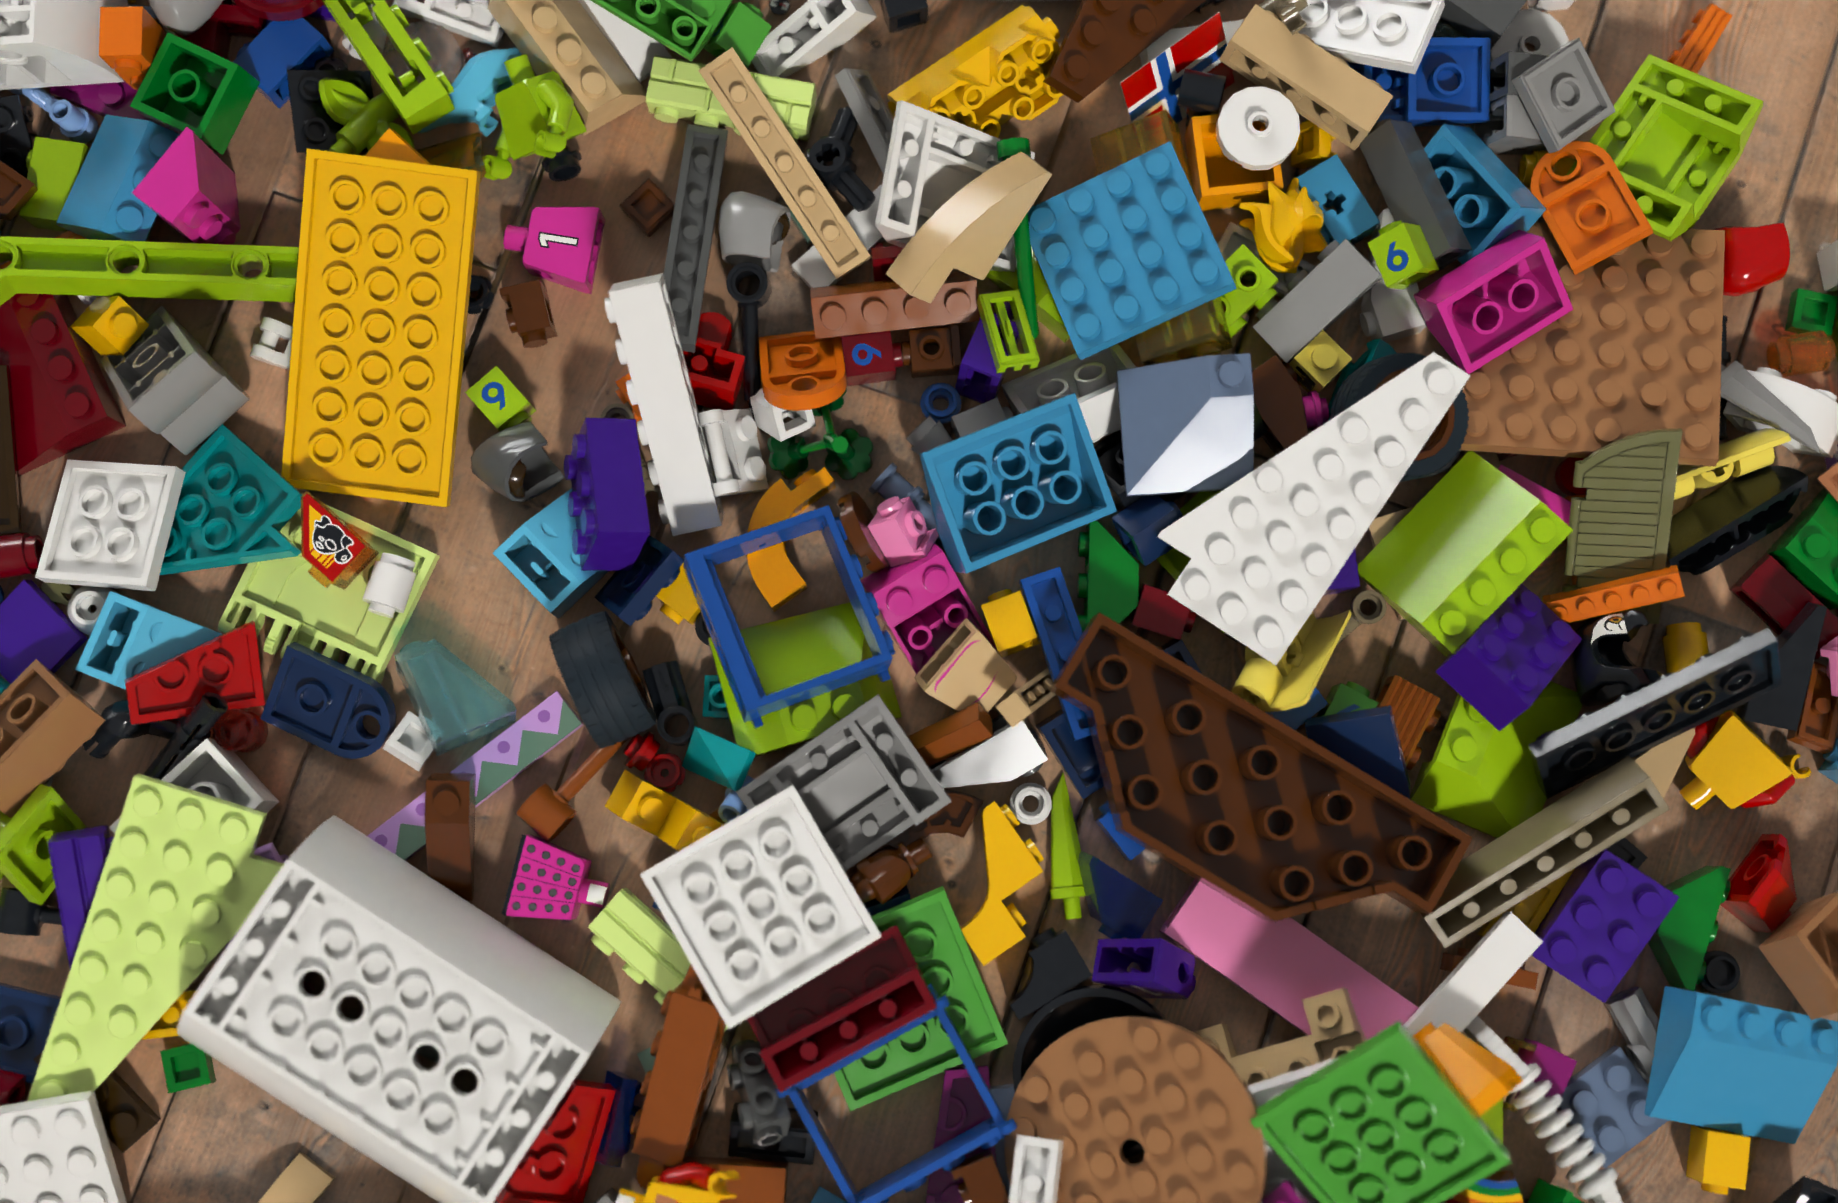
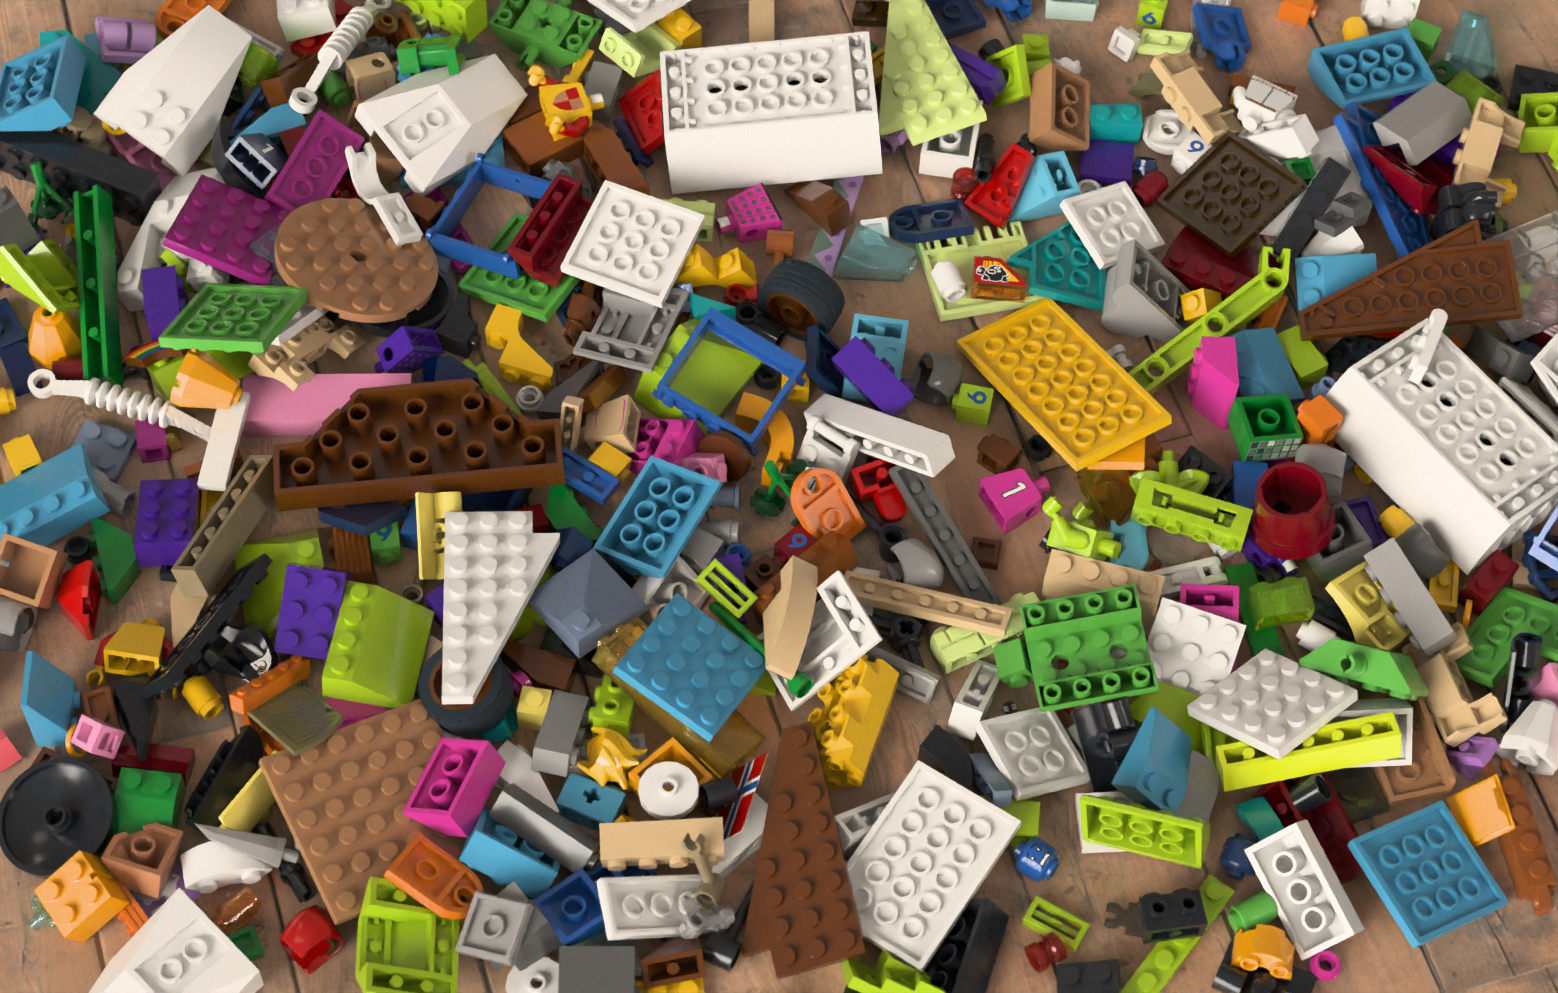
camera: 145 degrees right, 25 degrees down
(1402, 255) = (528, 774): lime brick -> none

